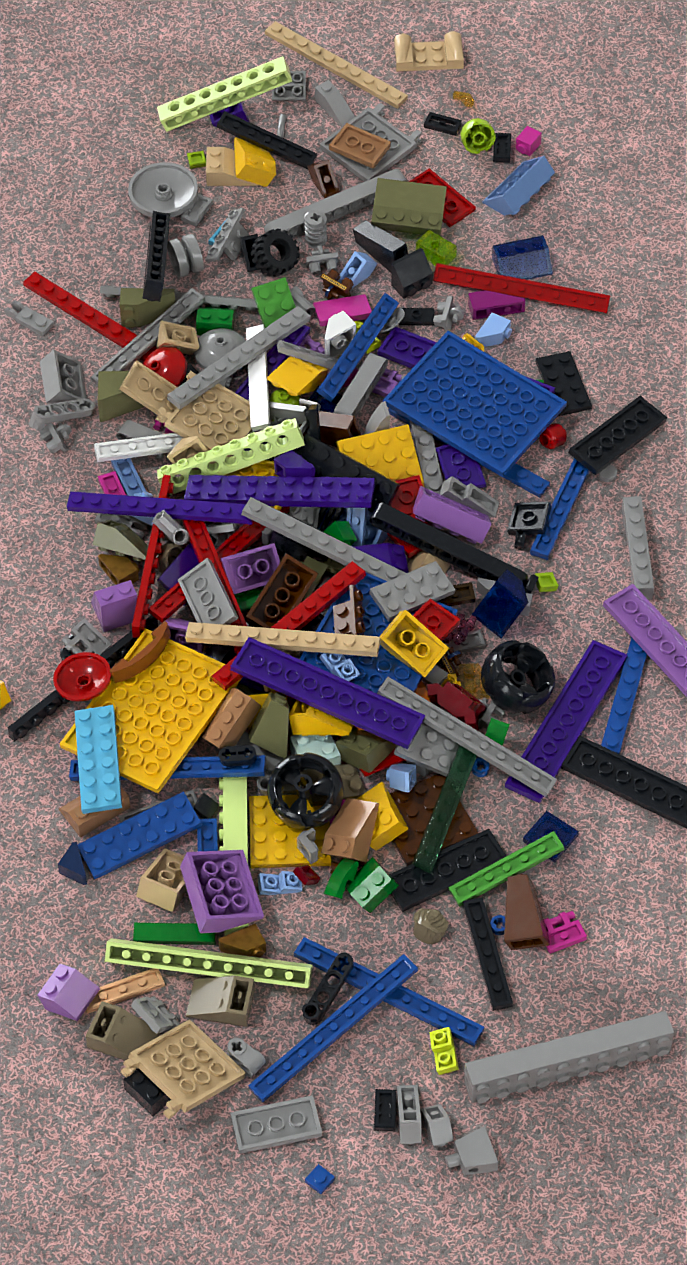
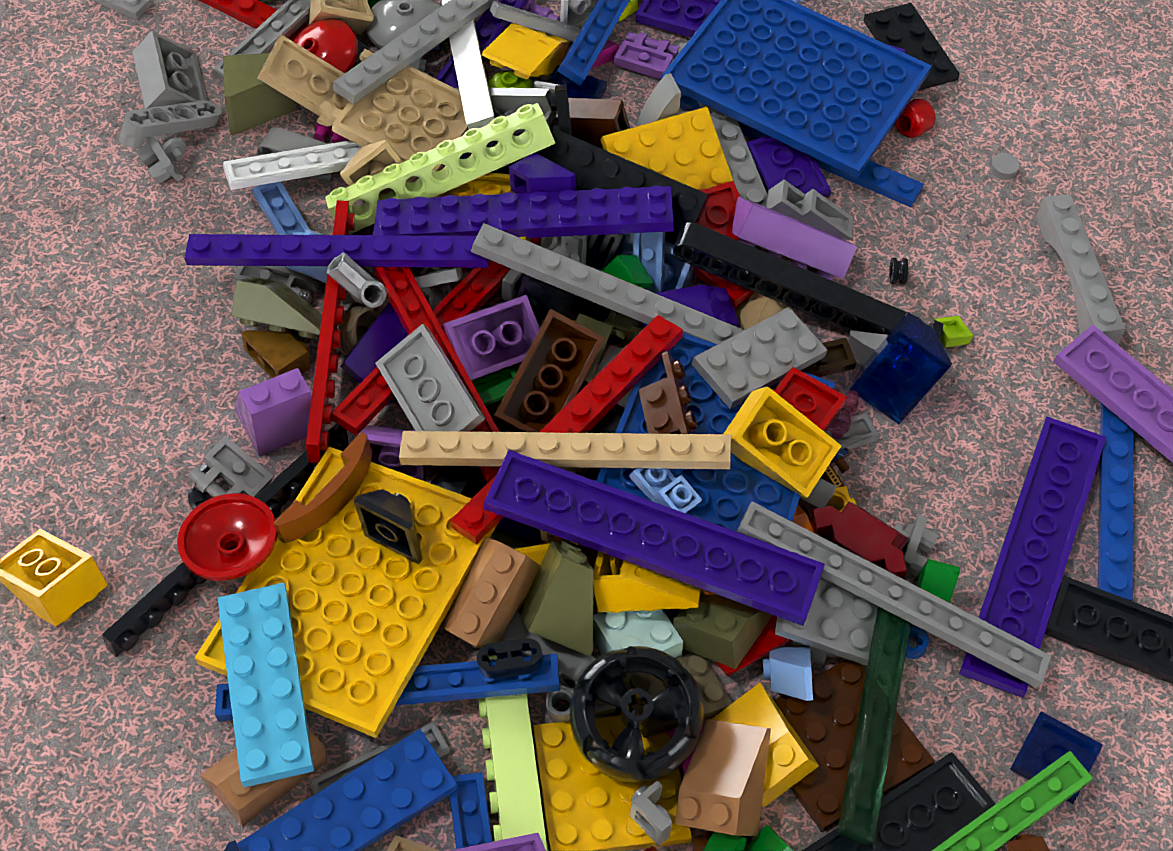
camera: 10 degrees left, 0 degrees up
(111, 484) = (253, 221): dark pink plate -> none
(176, 674) = (389, 522): none -> black slope
(205, 806) = (459, 751): black tile -> none
(362, 385) = (623, 59): light grey beam -> none
(471, 680) = (877, 495): clear yellow wing -> none
(510, 690) = (964, 500): black wheel -> none
(529, 518) = (906, 236): black tile -> none
(560, 510) = (951, 210): blue plate -> none
(617, 435) = (1009, 112): black plate -> none

